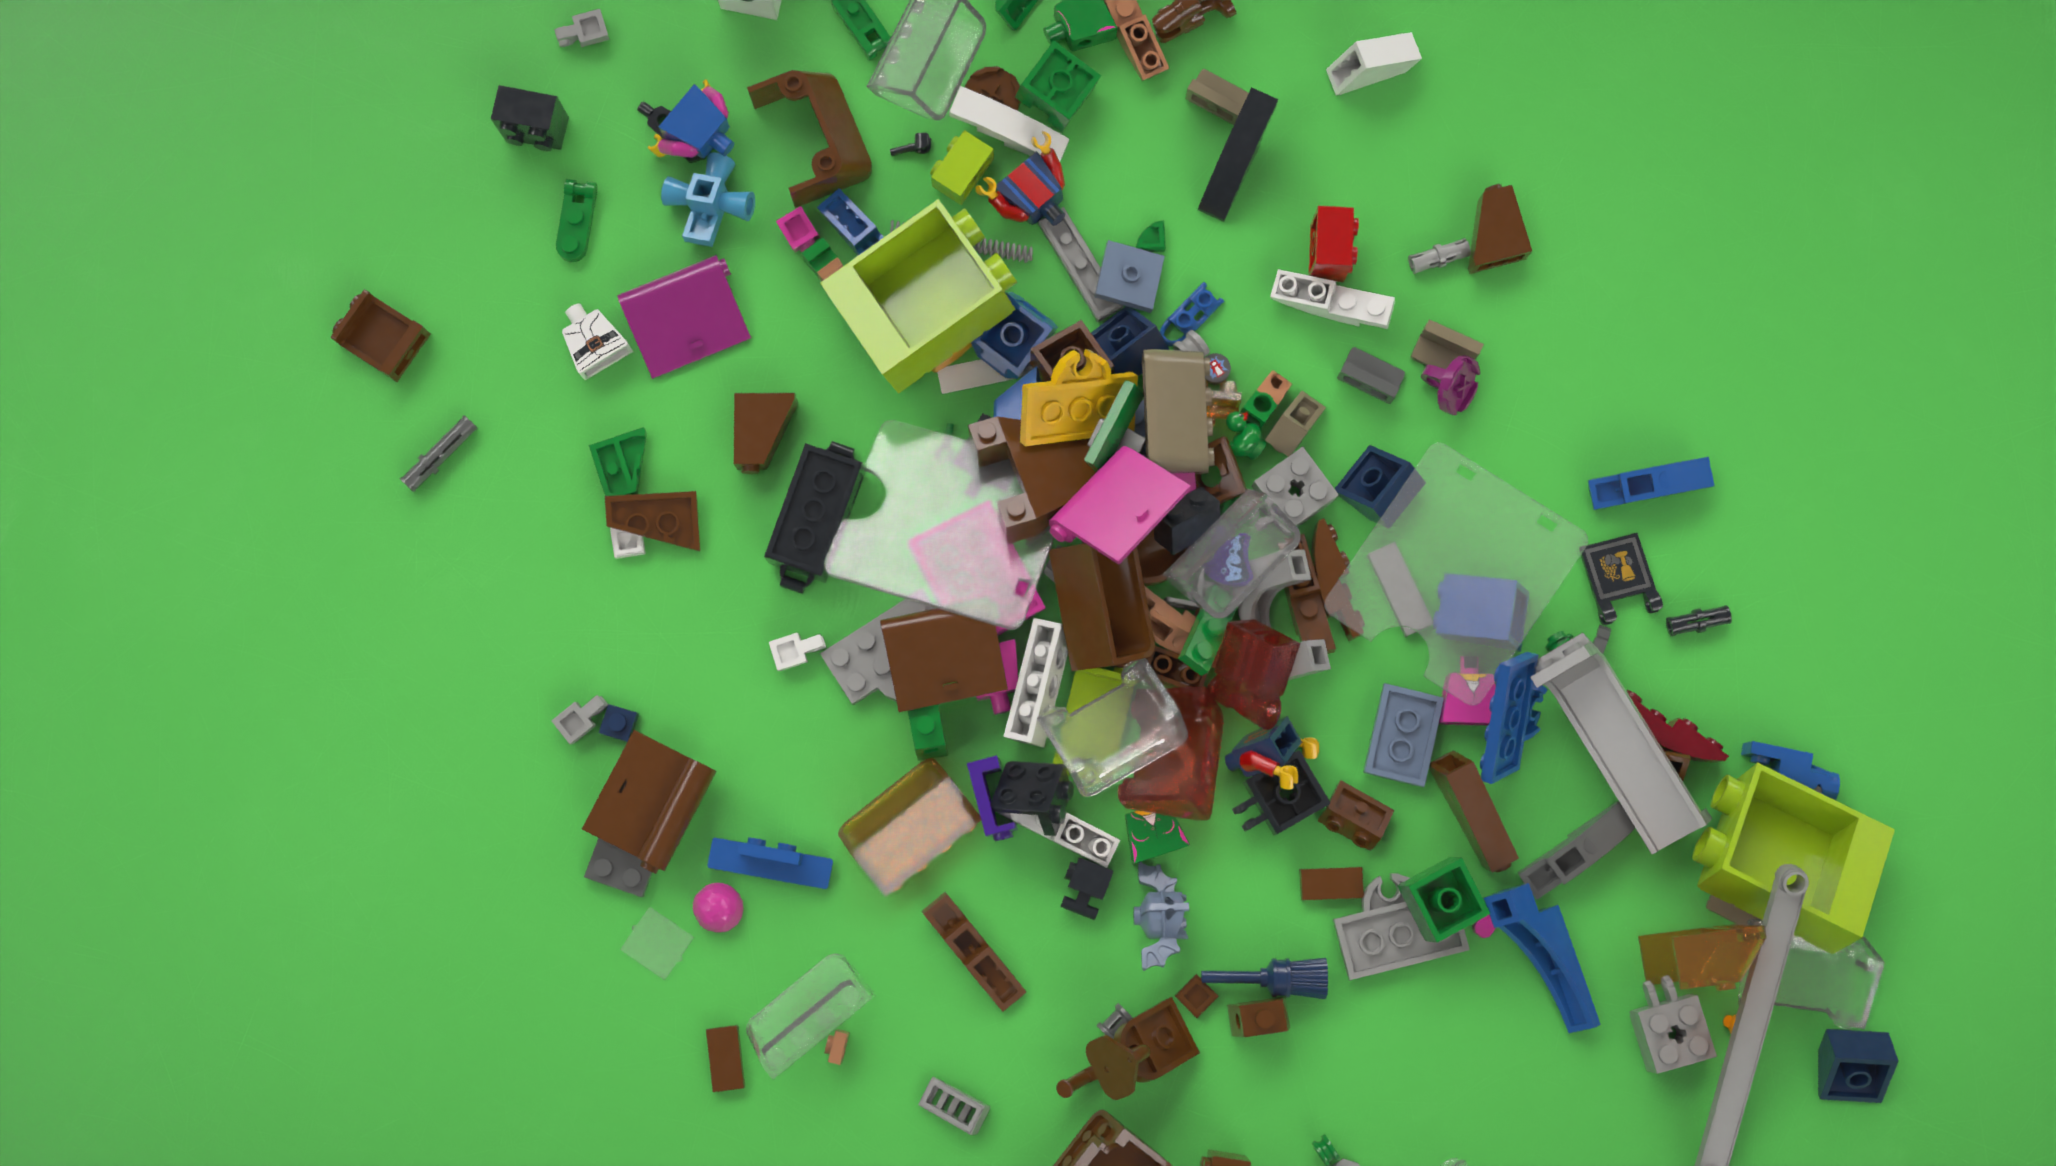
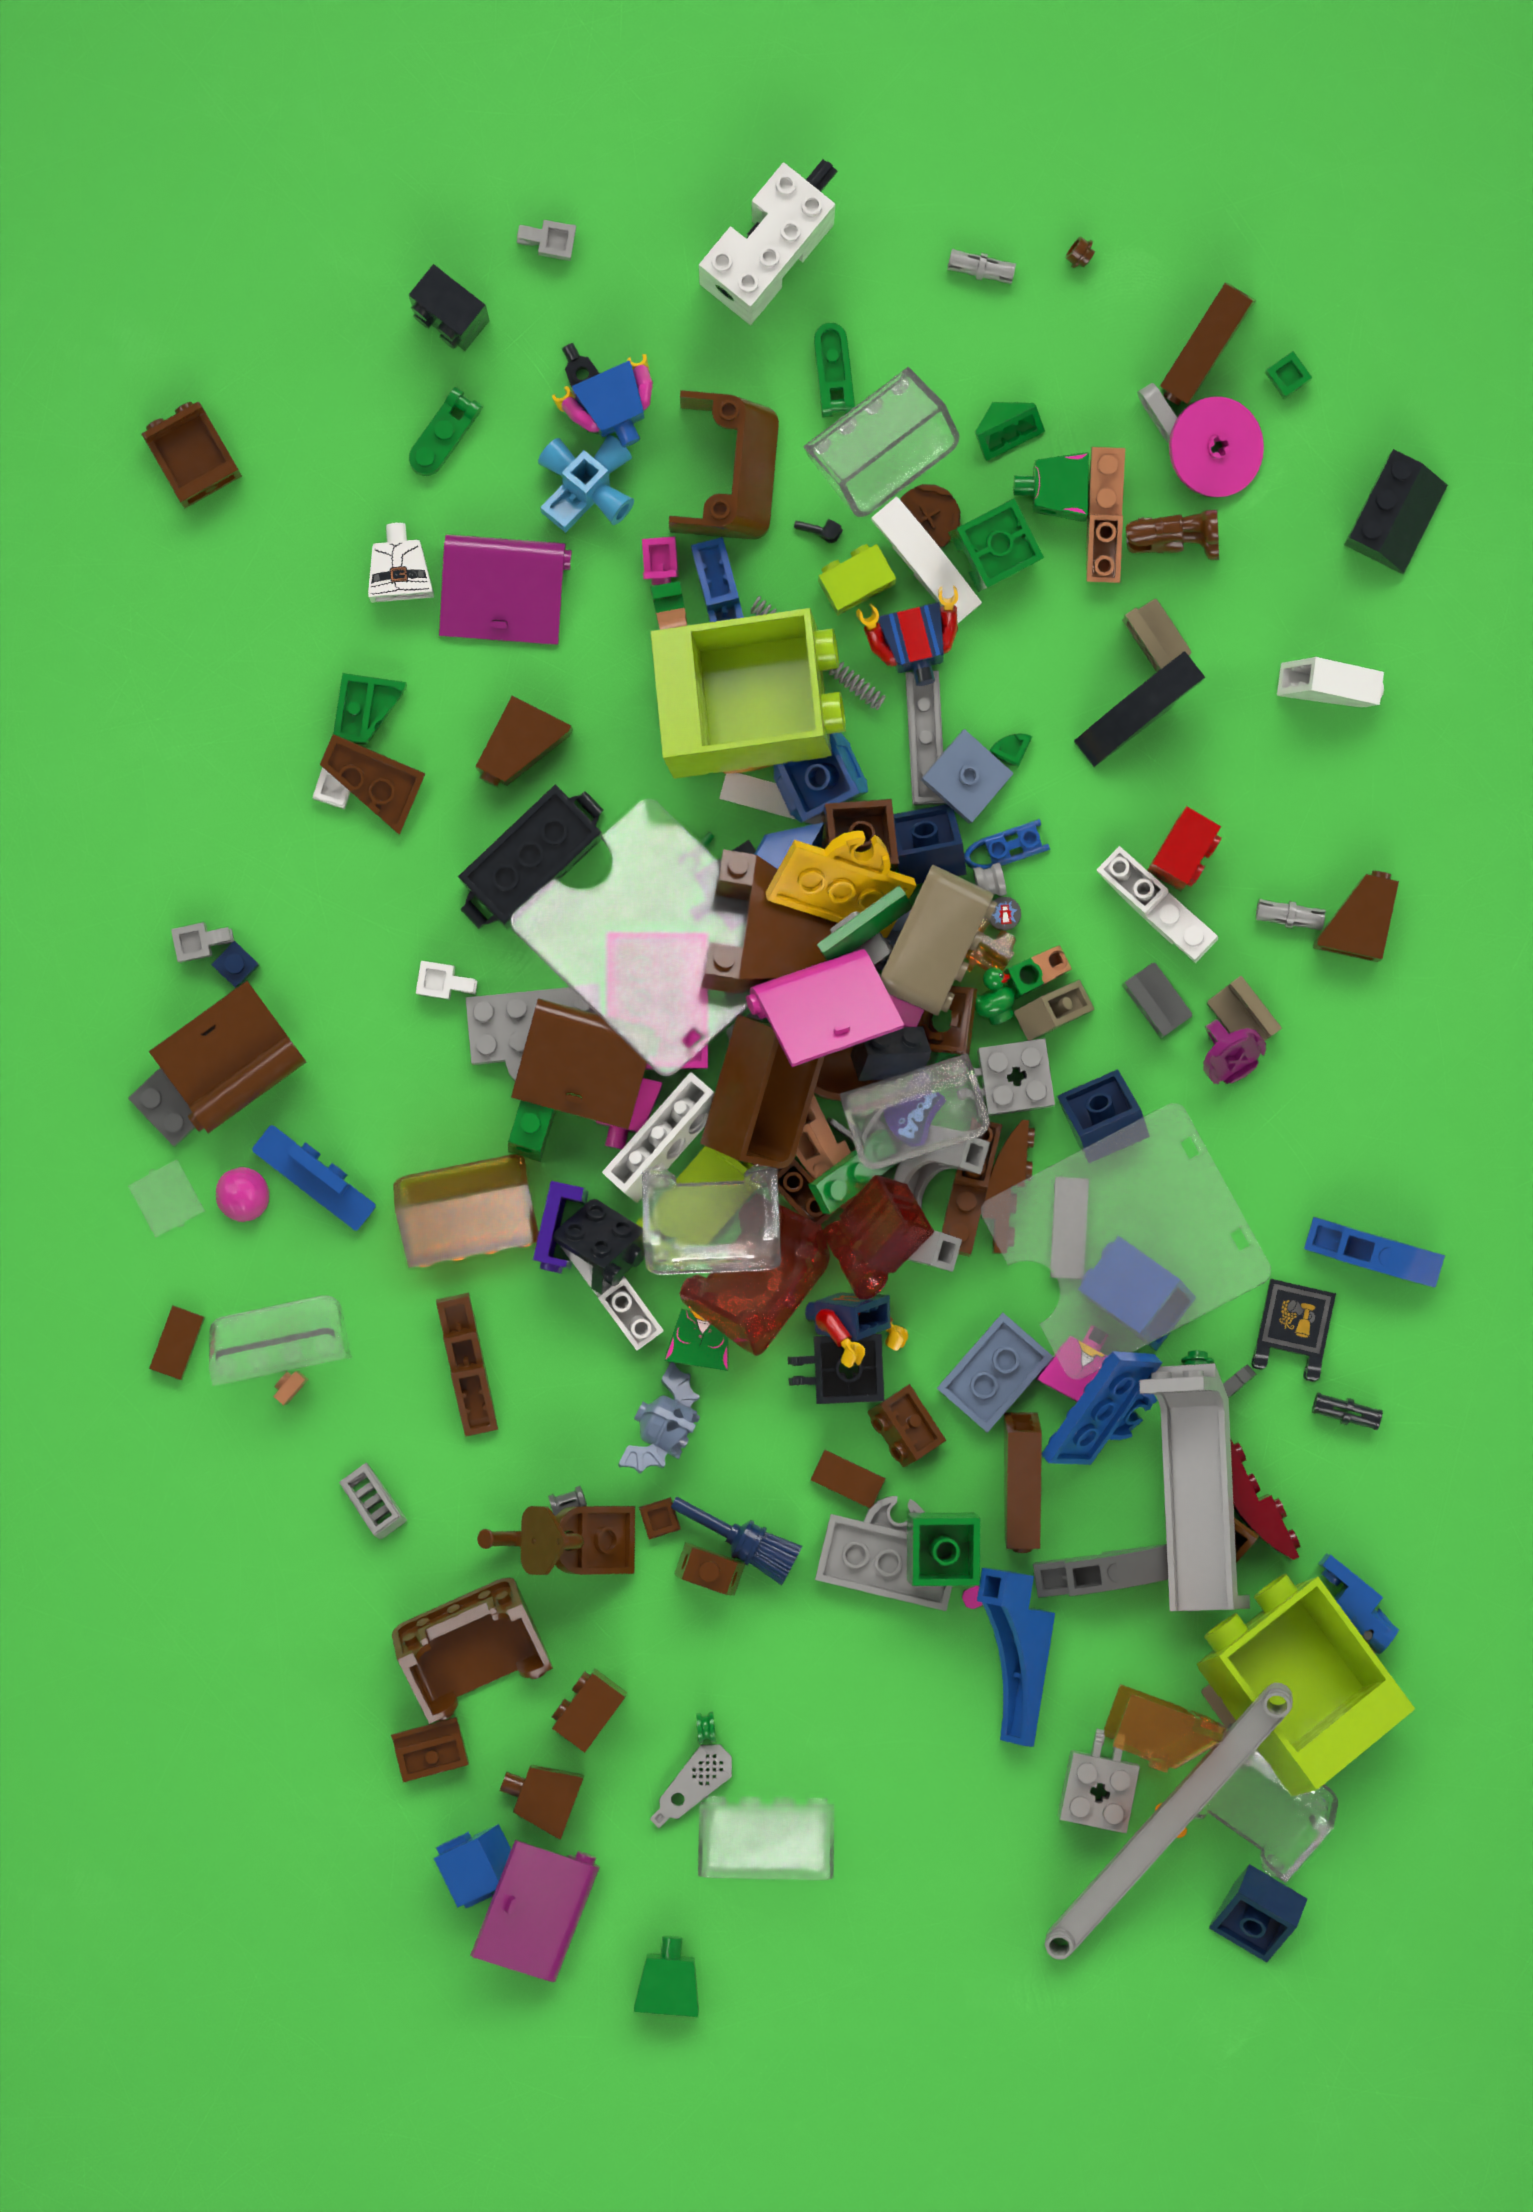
camera: 25 degrees right, 5 degrees up
(438, 453) = (190, 604): dark grey pin -> none
(1090, 881) = (613, 1354): black brick -> none

